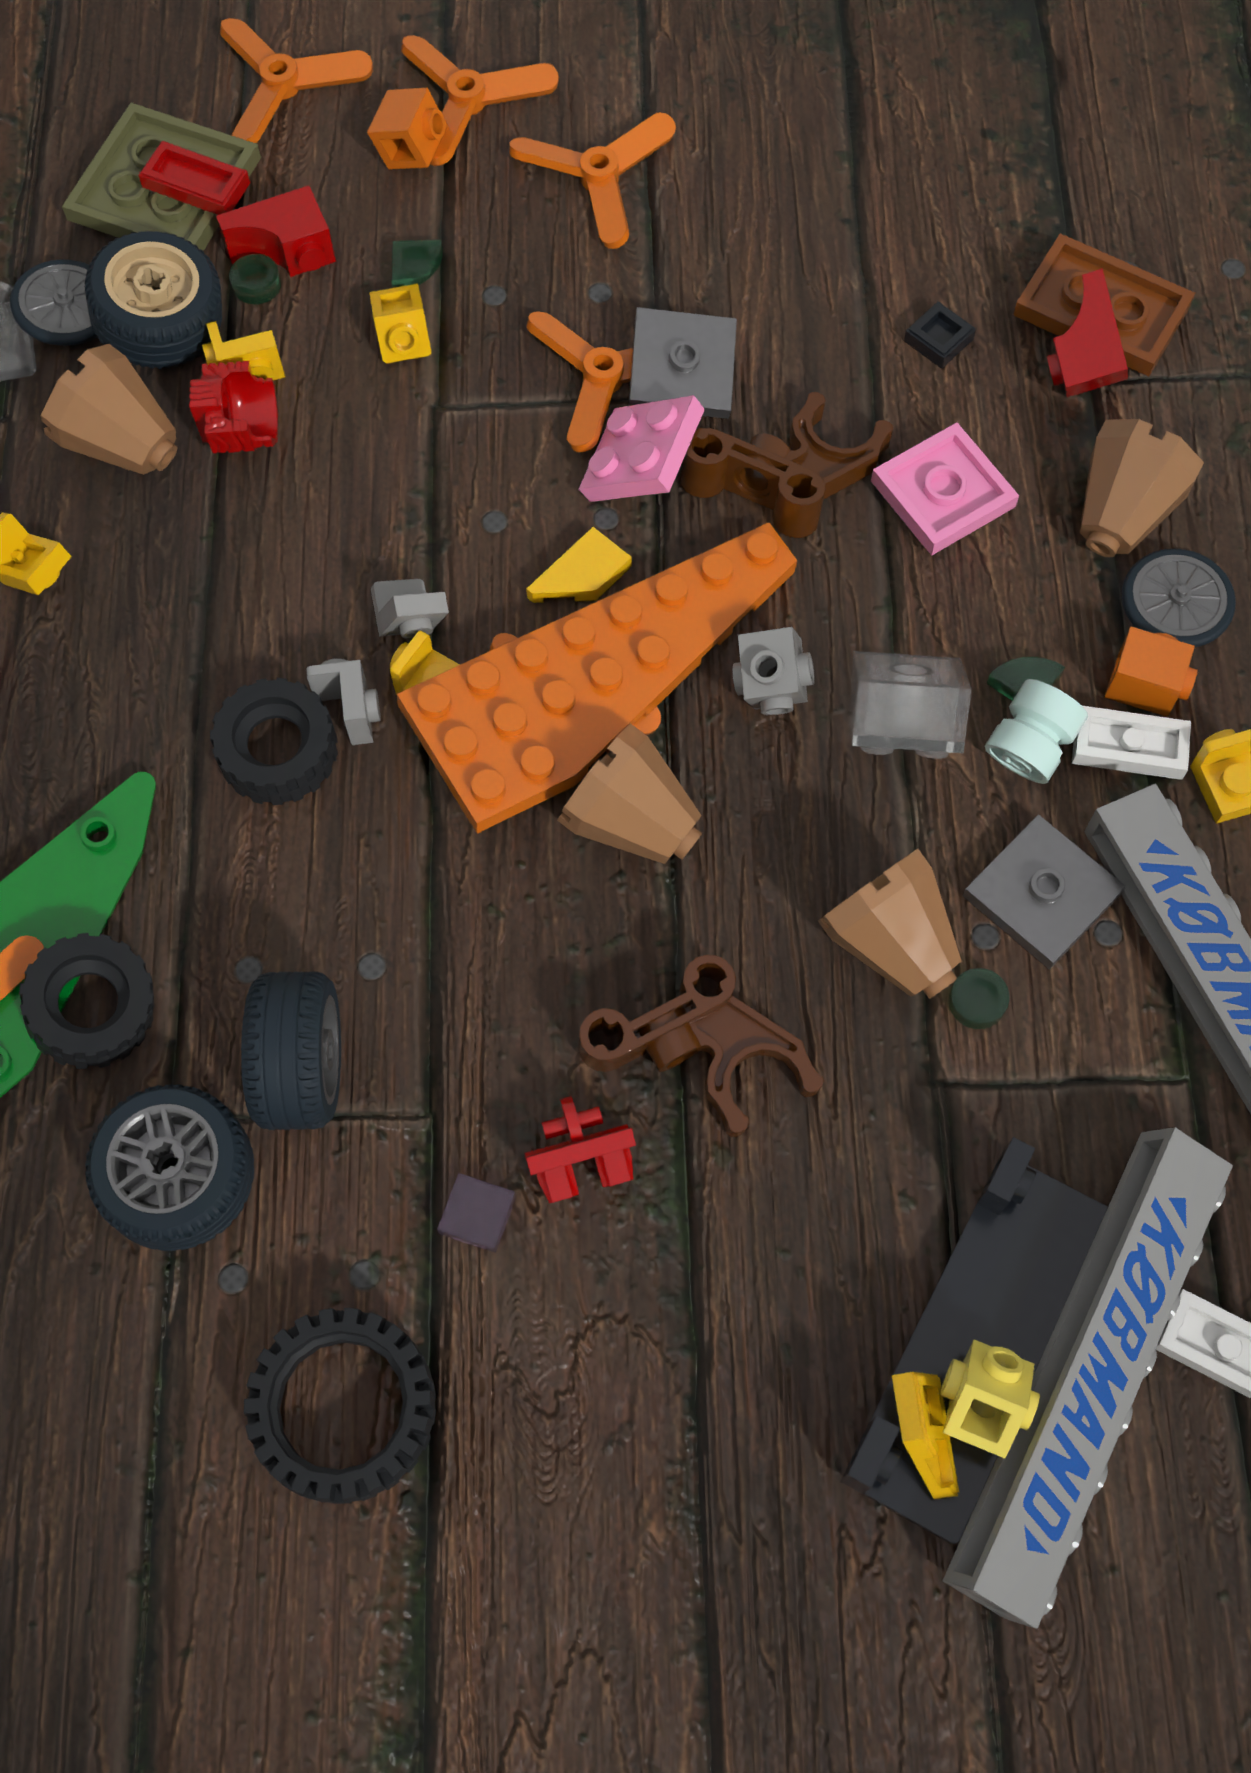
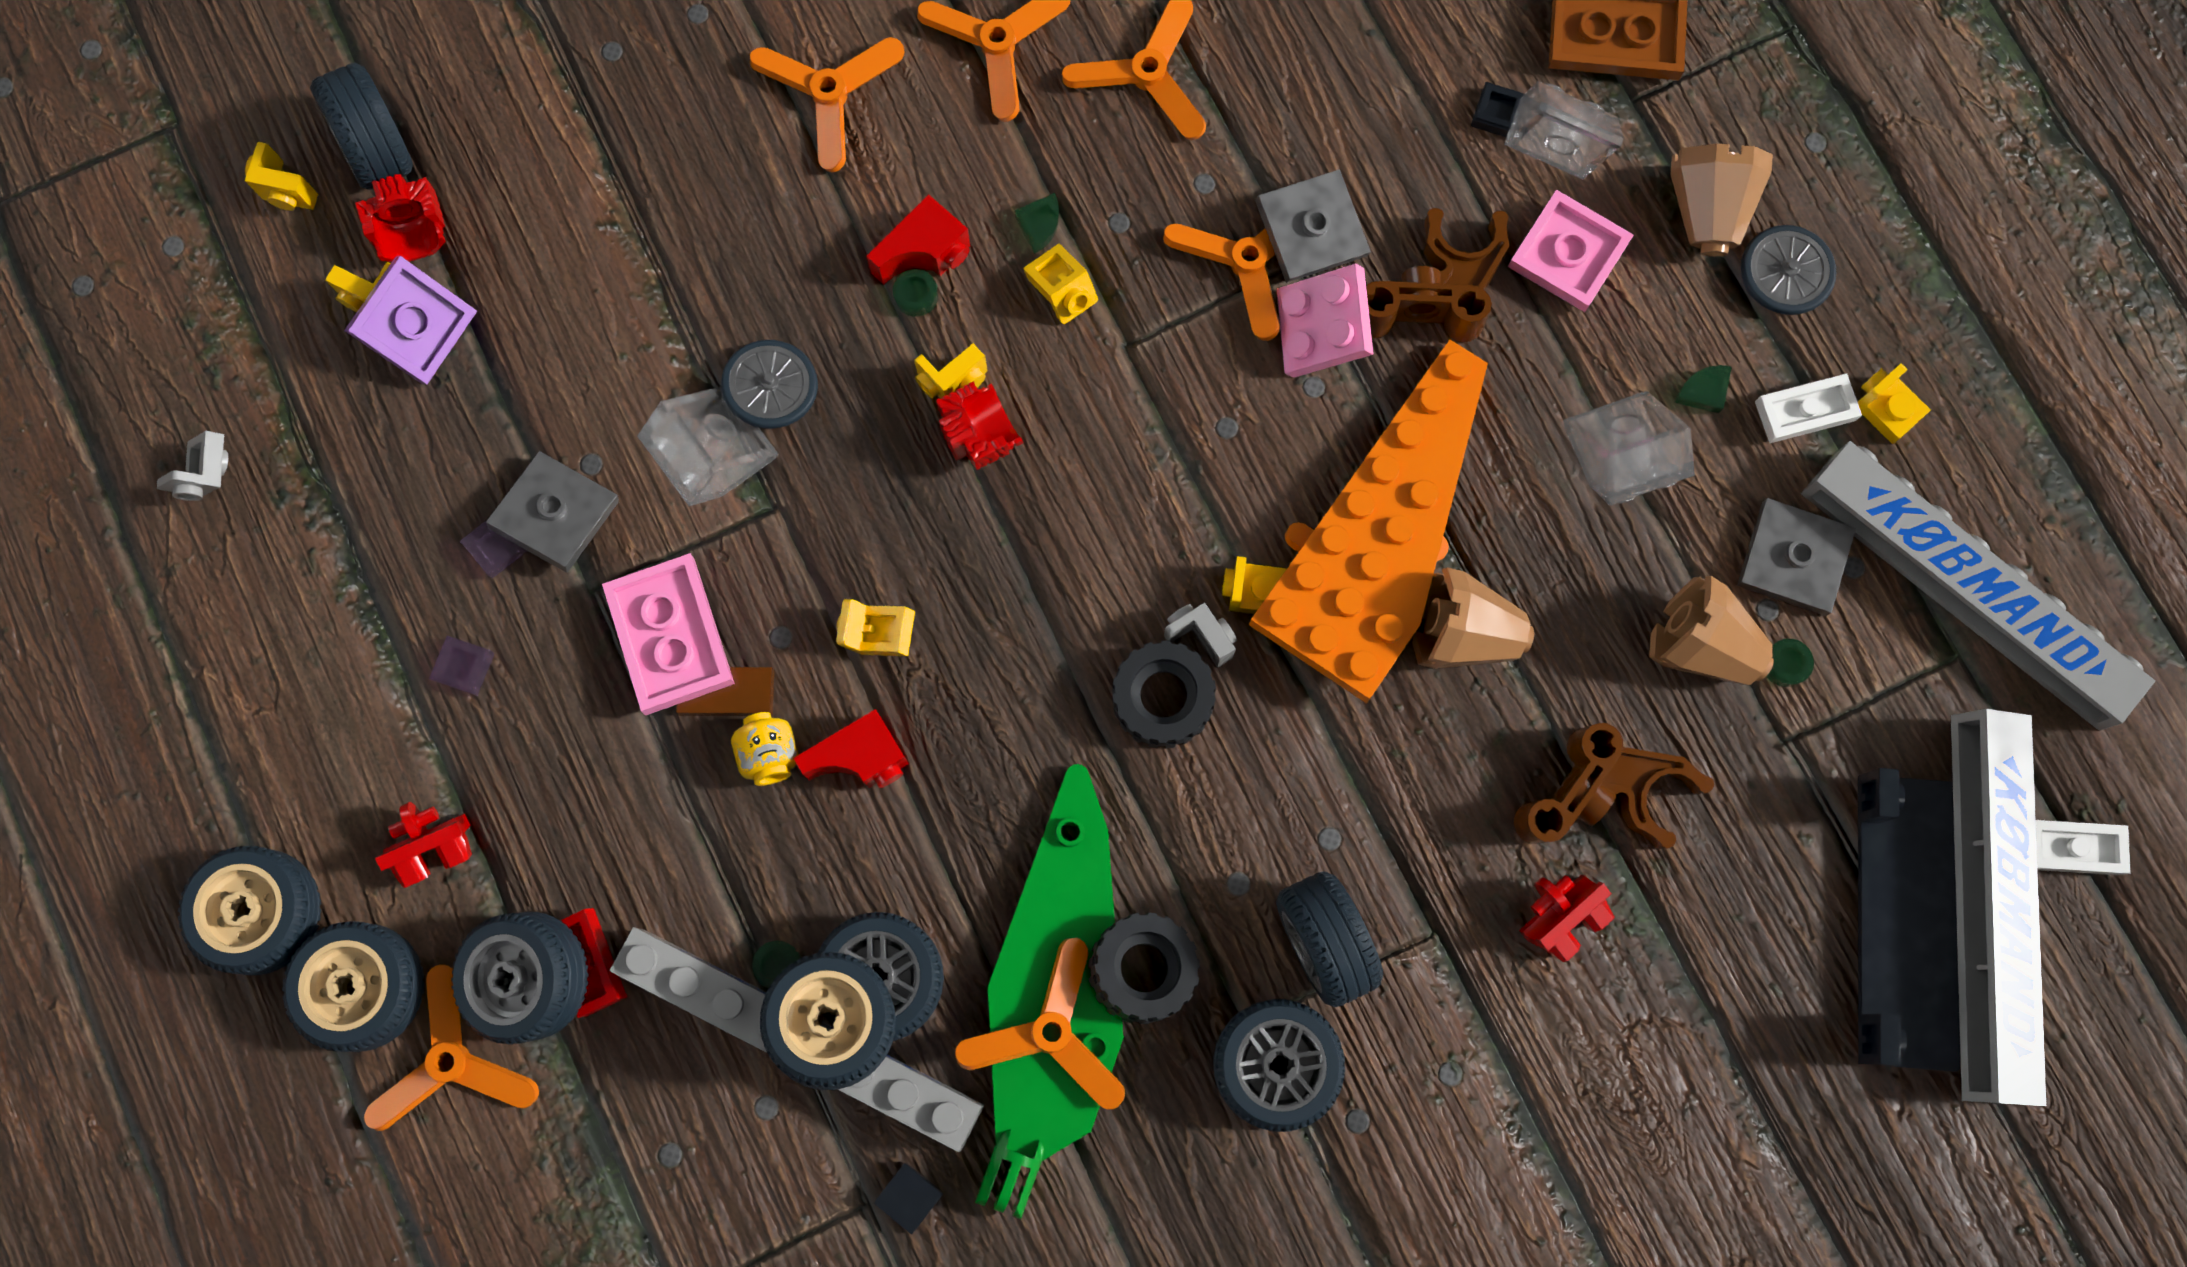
camera: 25 degrees left, 10 degrees up
(109, 414) = (883, 475): medium nougat cone -> none
(110, 190) = (788, 236): olive plate -> none
(153, 298) = (854, 354): black wheel -> none
(194, 178) = (822, 226): red tile -> none
(277, 1366) = (1553, 1179): black tyre -> none
(406, 608) = (1206, 542): light grey bracket -> none
(407, 128) = (975, 99): orange brick -> none
(476, 1212) = (1511, 991): clear purple tile -> none
(582, 570) = (1324, 442): yellow tile -> none
(773, 670) = (1514, 454): light grey brick -> none
(922, 1427) = (1910, 1004): yellow tile -> none
(989, 365) = (1563, 130): none -> clear slope
(989, 1397) = (1946, 964): light yellow brick -> none
(1040, 724) = (1741, 434): light aqua wheel -> none
(1091, 349) = (1635, 78): red arch -> none
(1152, 672) = (1798, 343): orange brick -> none

